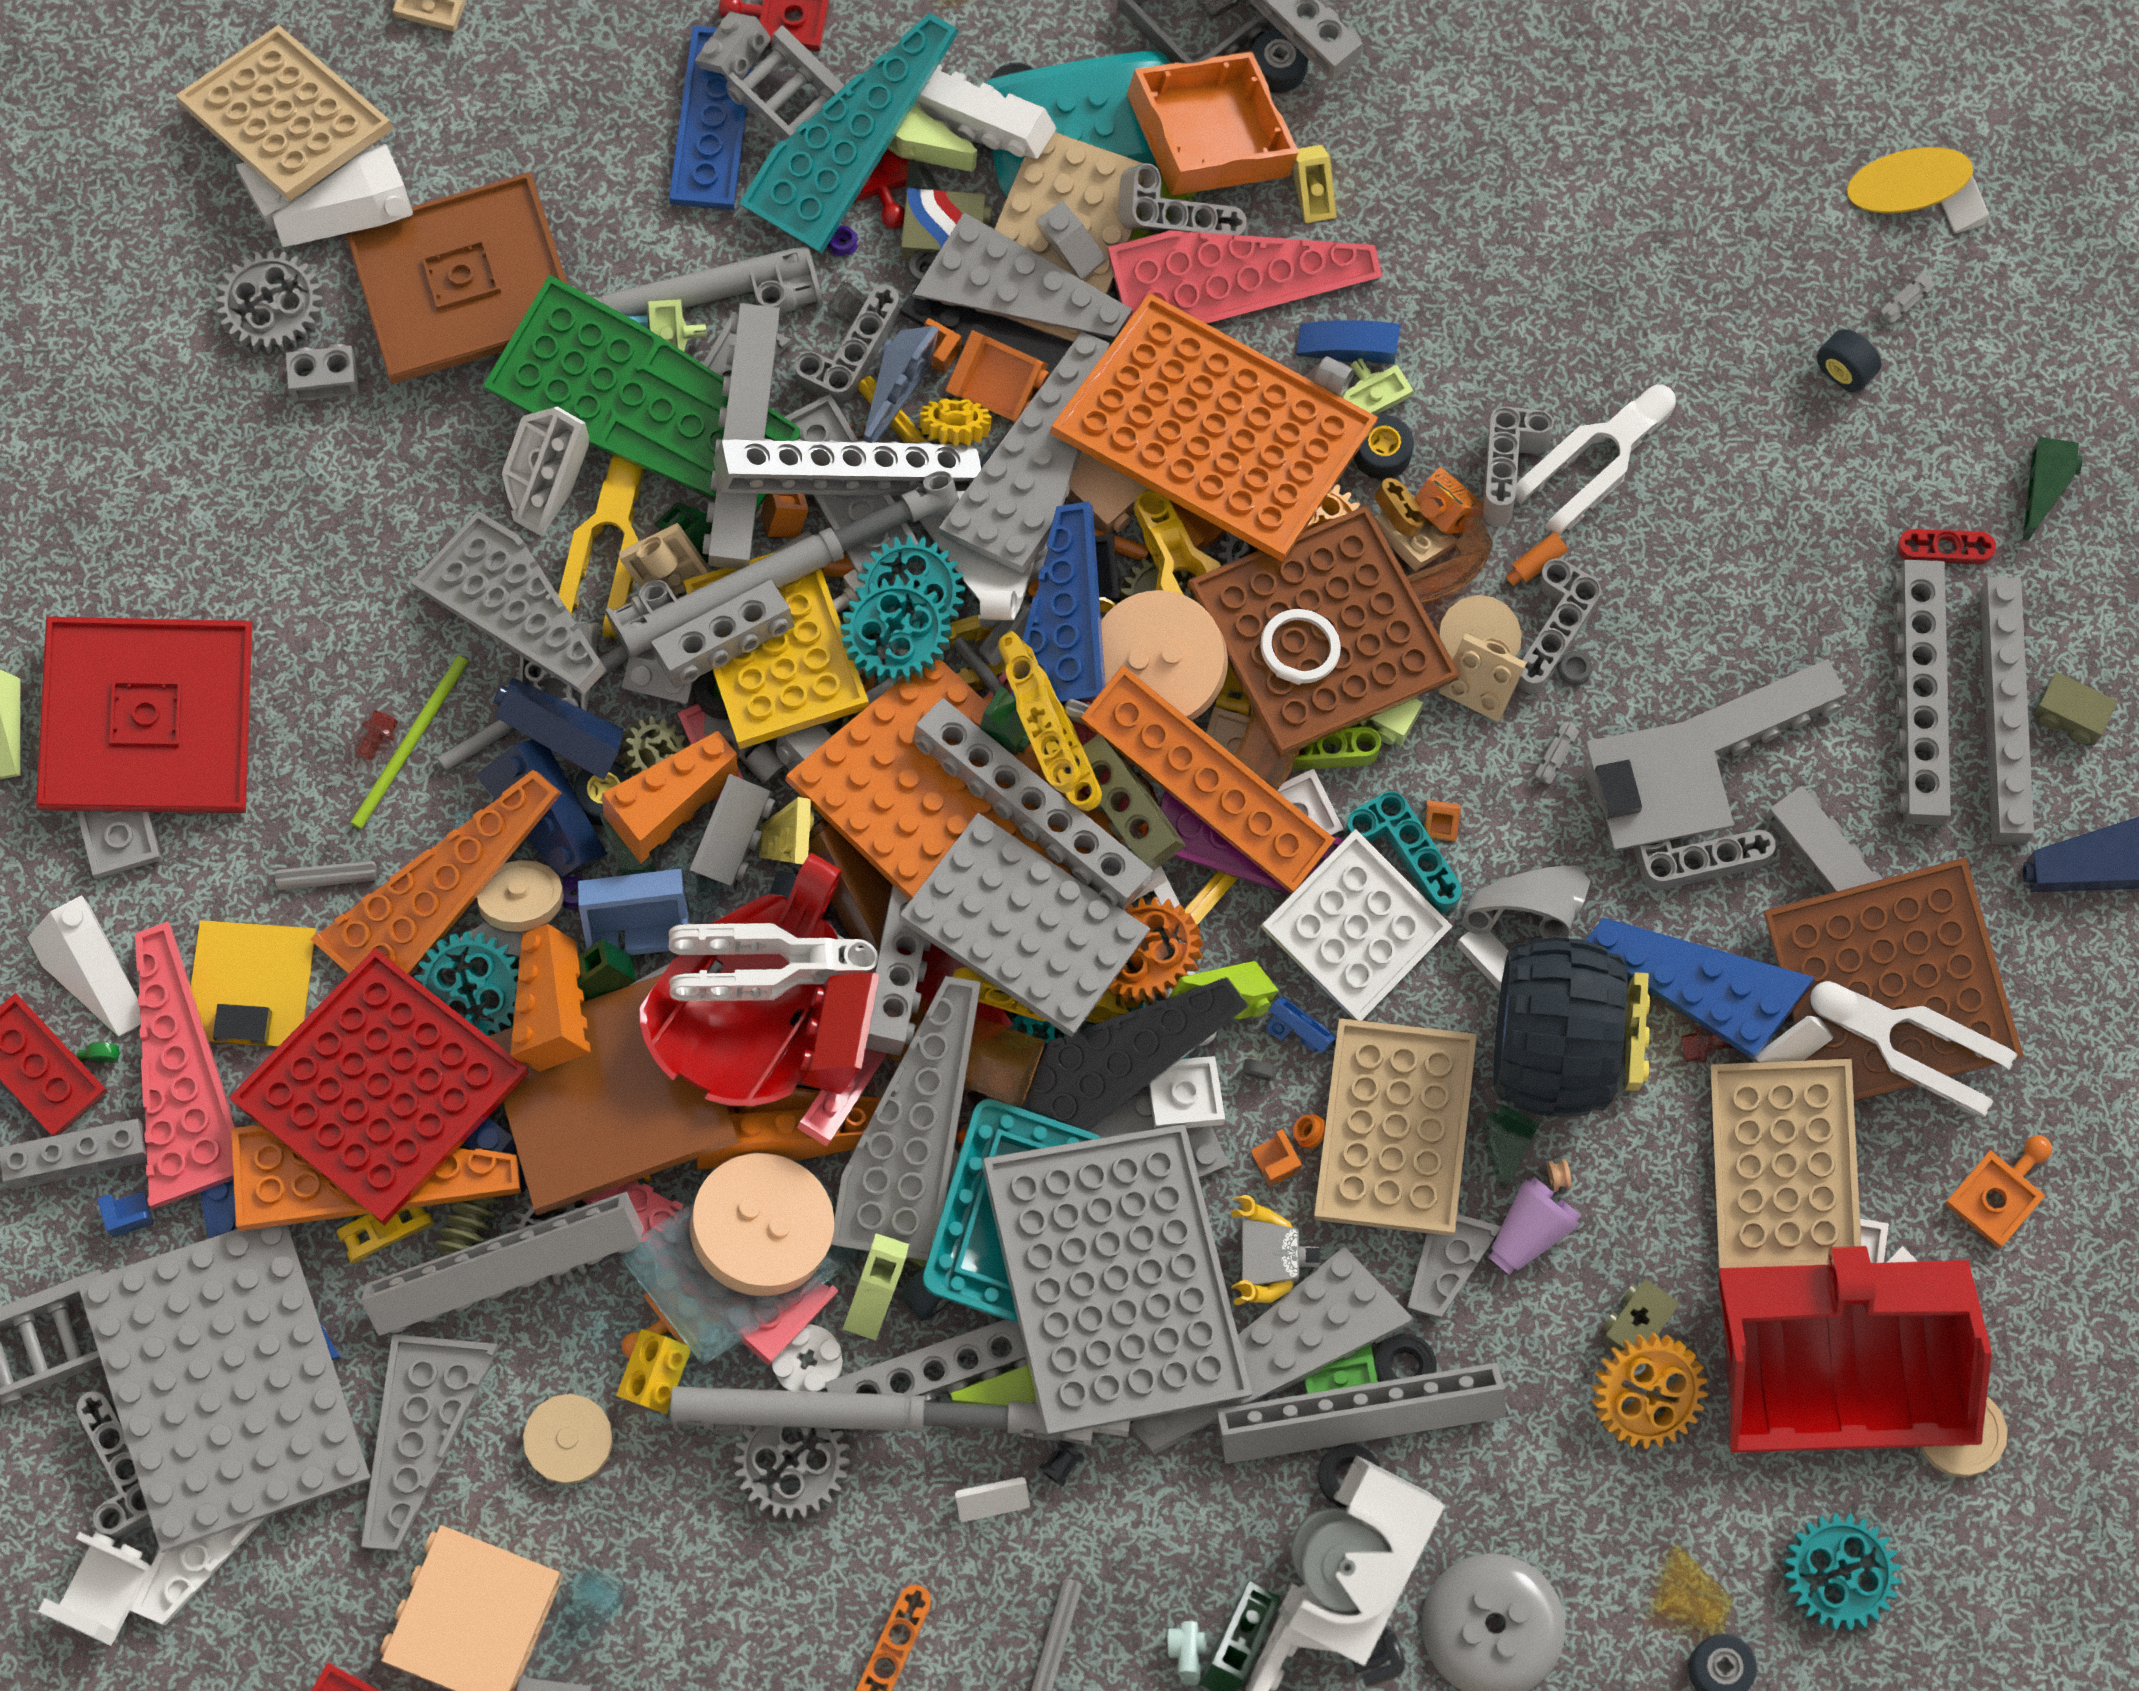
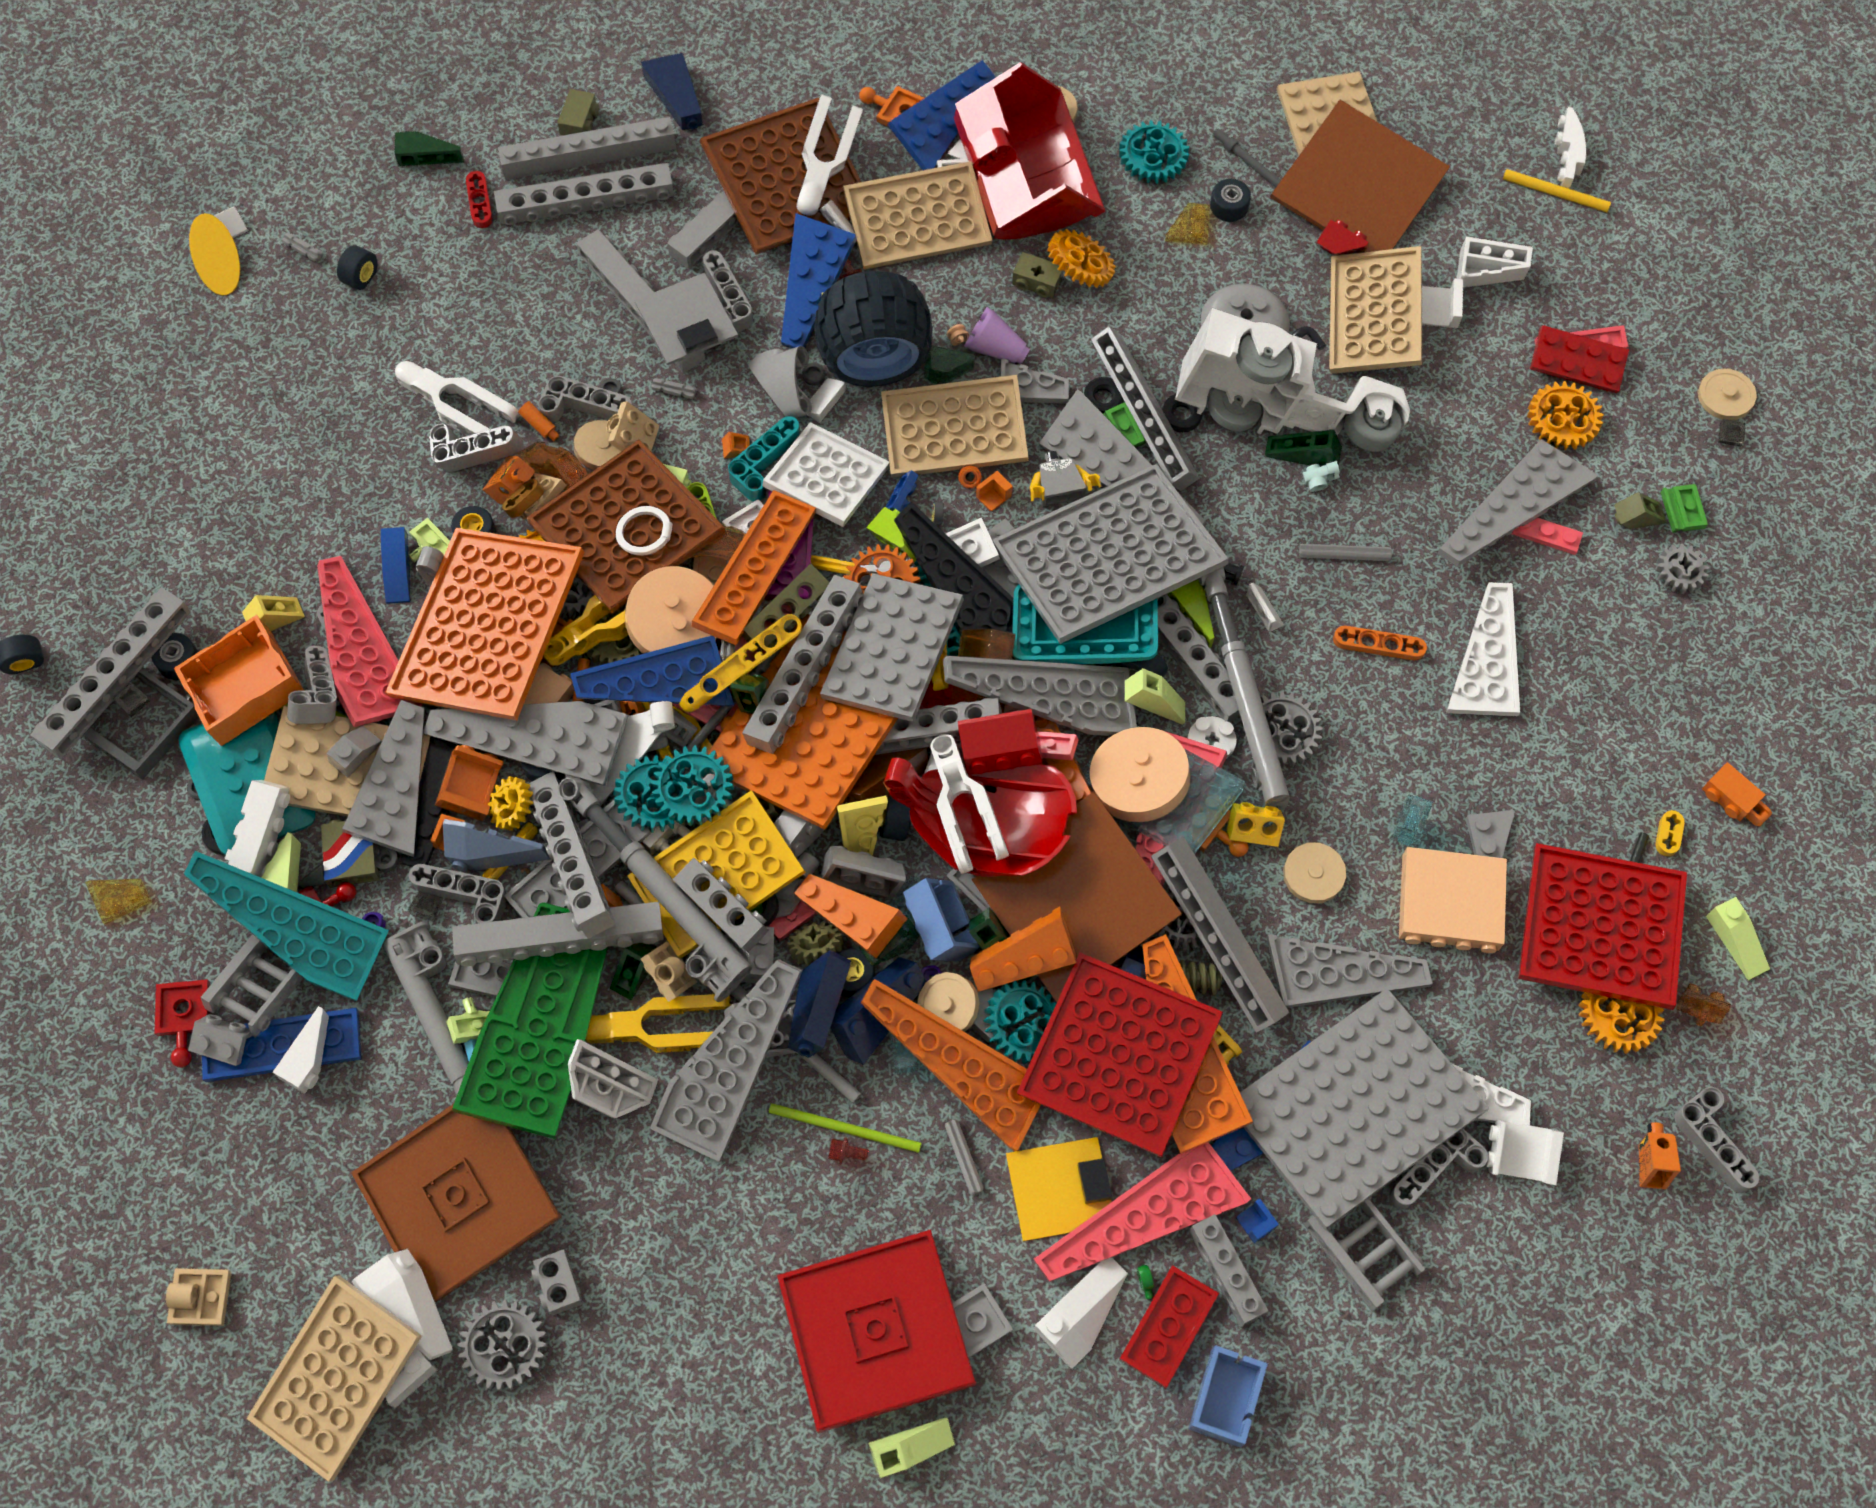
camera: 105 degrees left, 5 degrees down
(682, 136) = (304, 1057): none -> white slope
(1952, 1220) = (930, 124): none -> blue wing

